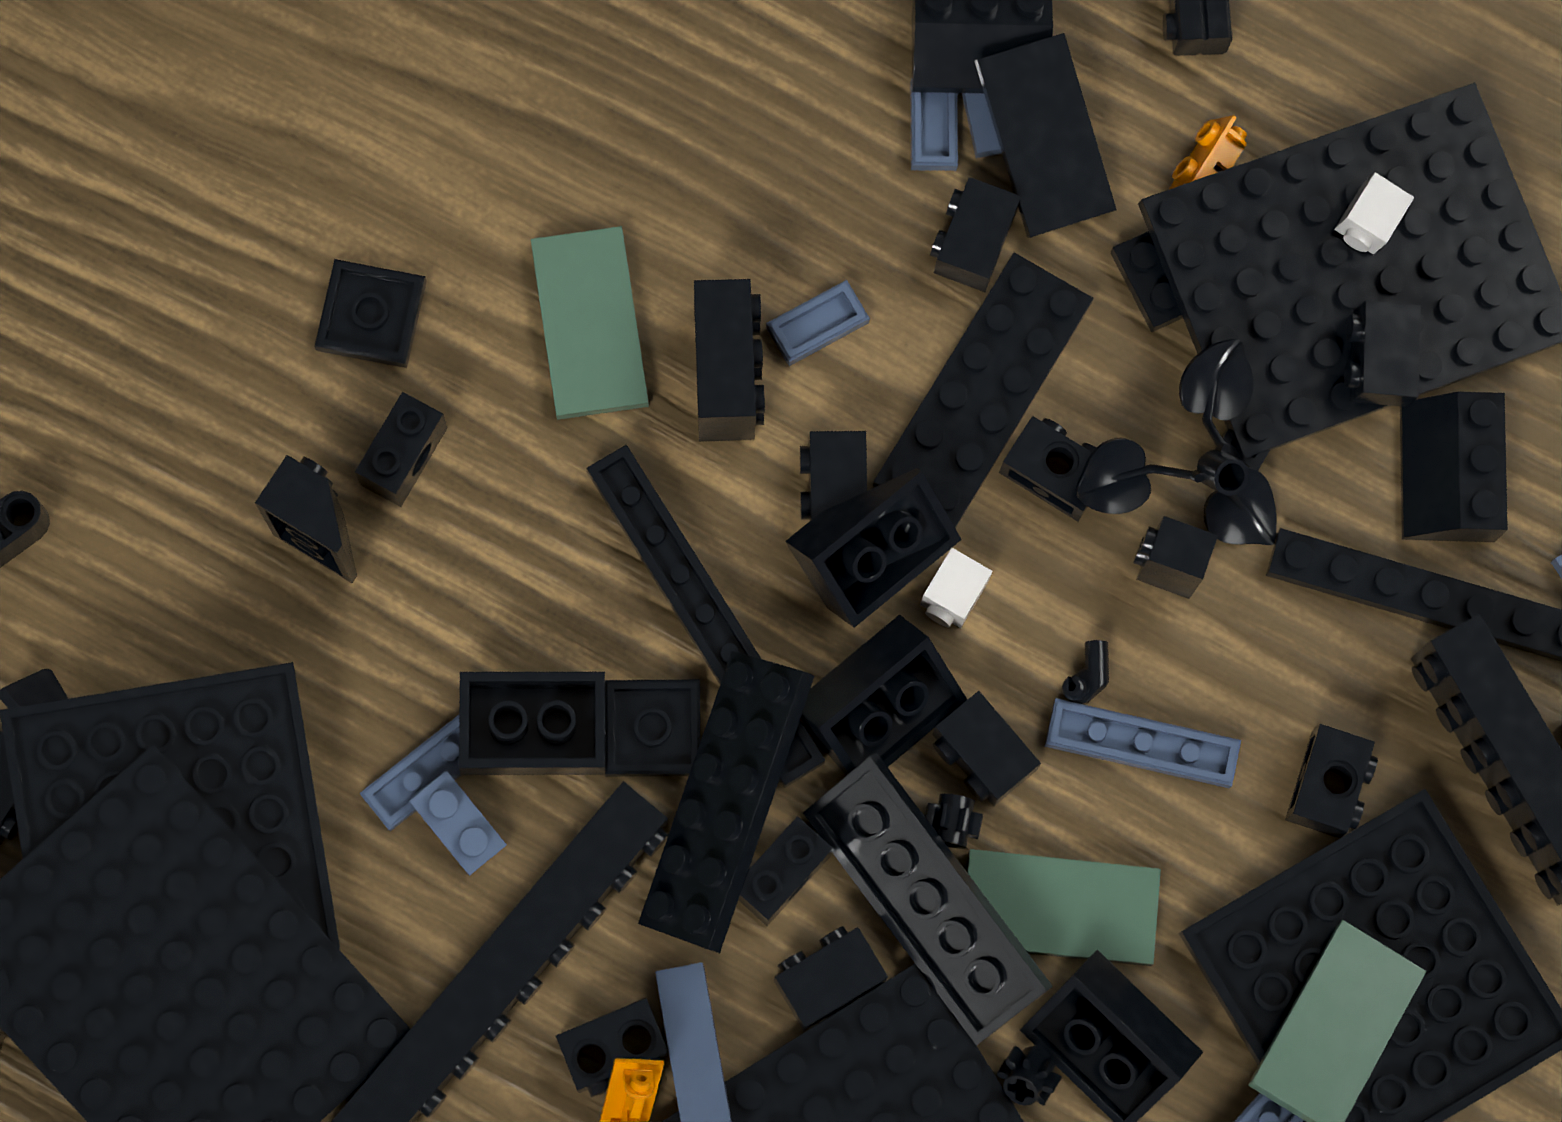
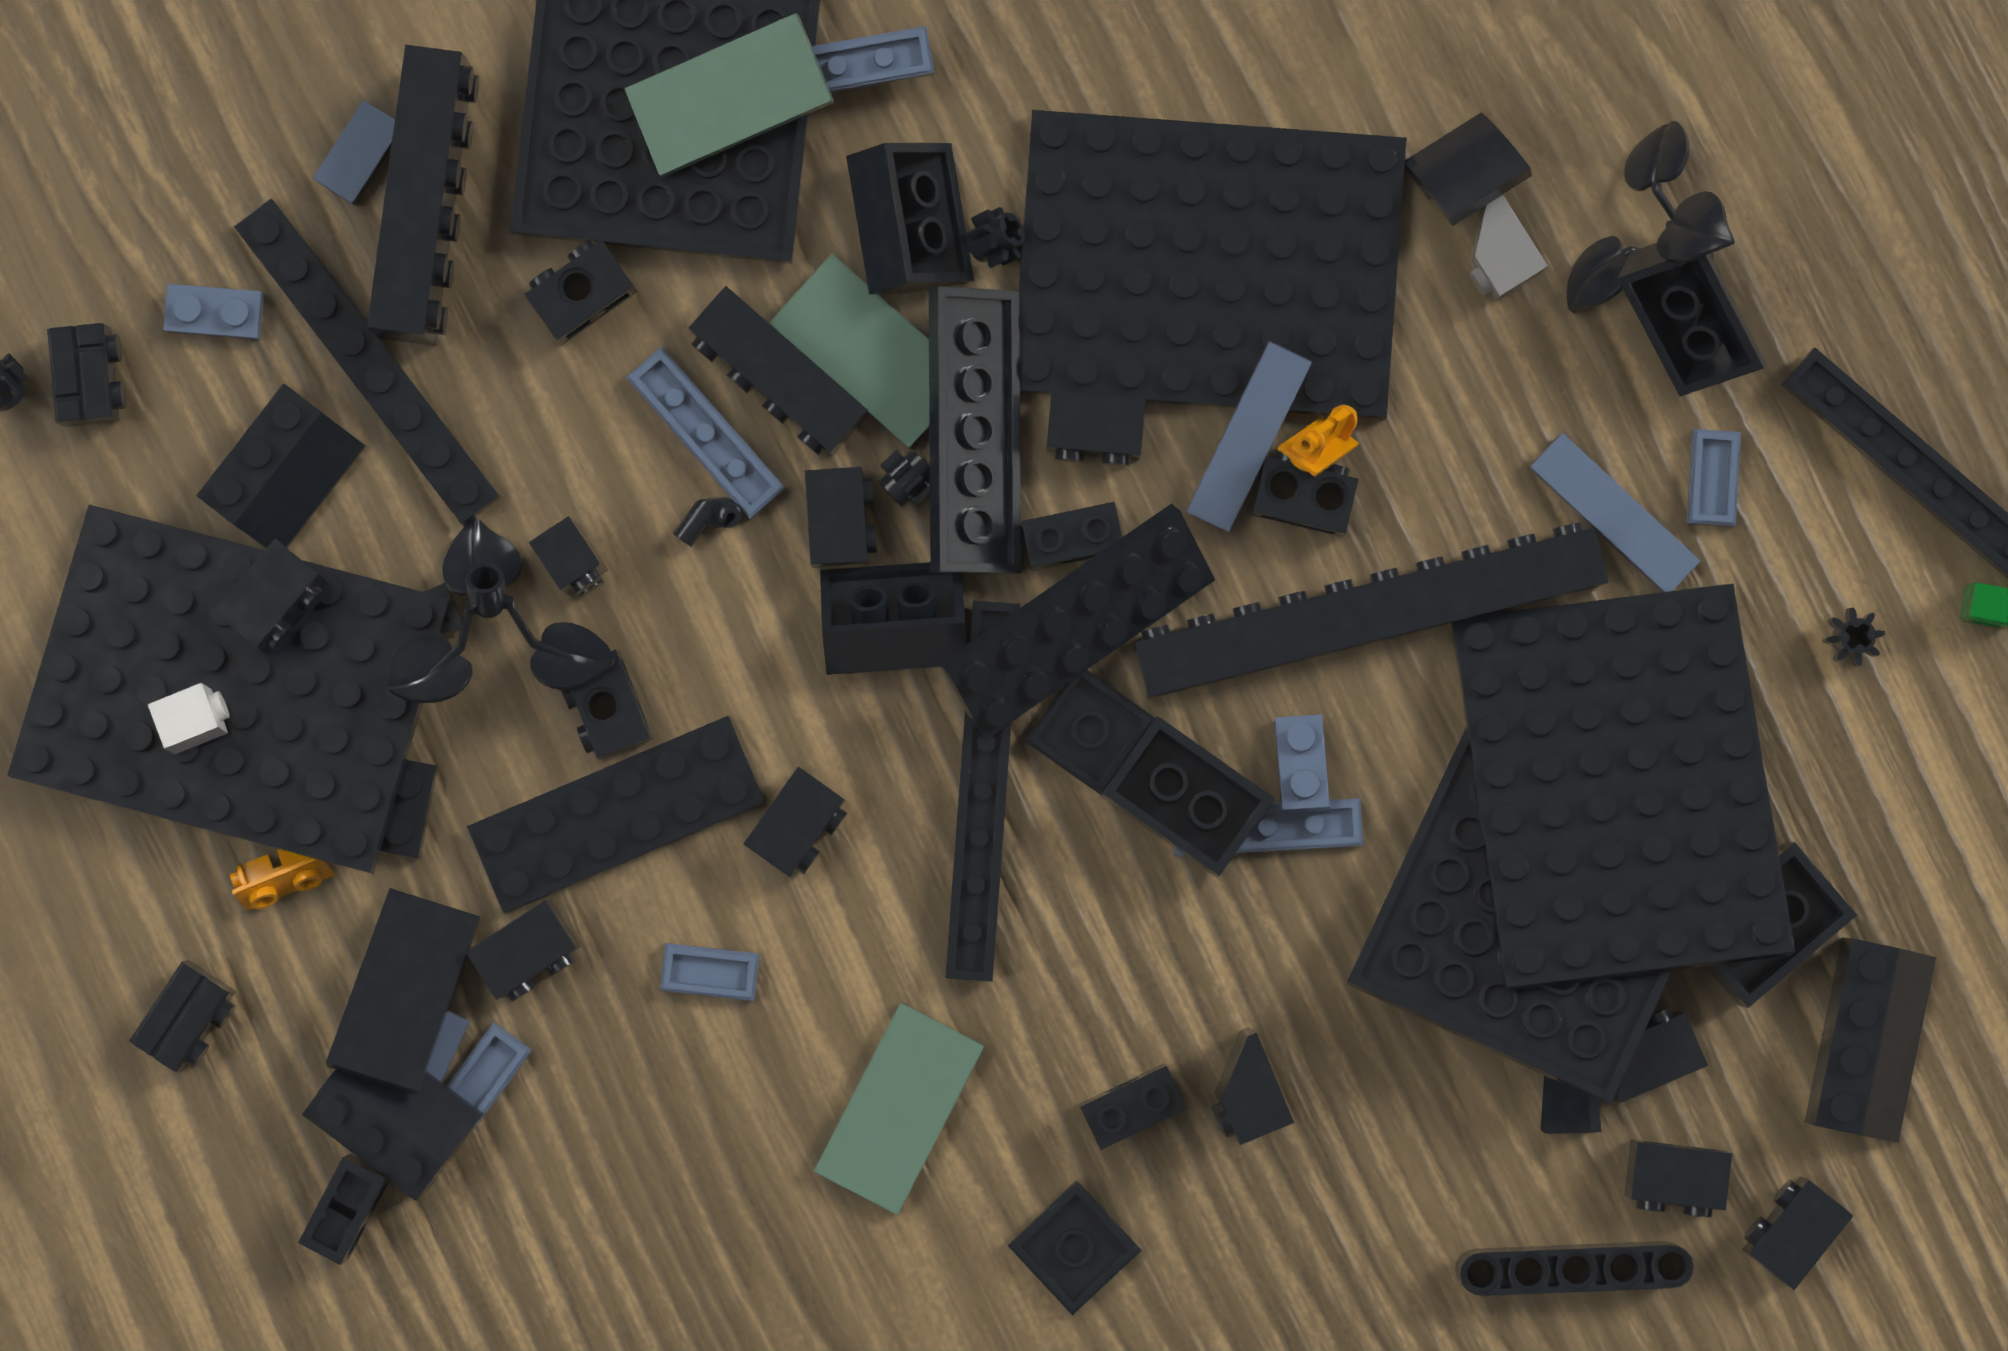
camera: 140 degrees left, 10 degrees up
(728, 360) = (812, 986): black brick -> none
(873, 545) = (808, 742): black slope -> none
(955, 589) = (765, 663): white brick -> none
(1123, 832) = (778, 371): none -> black brick

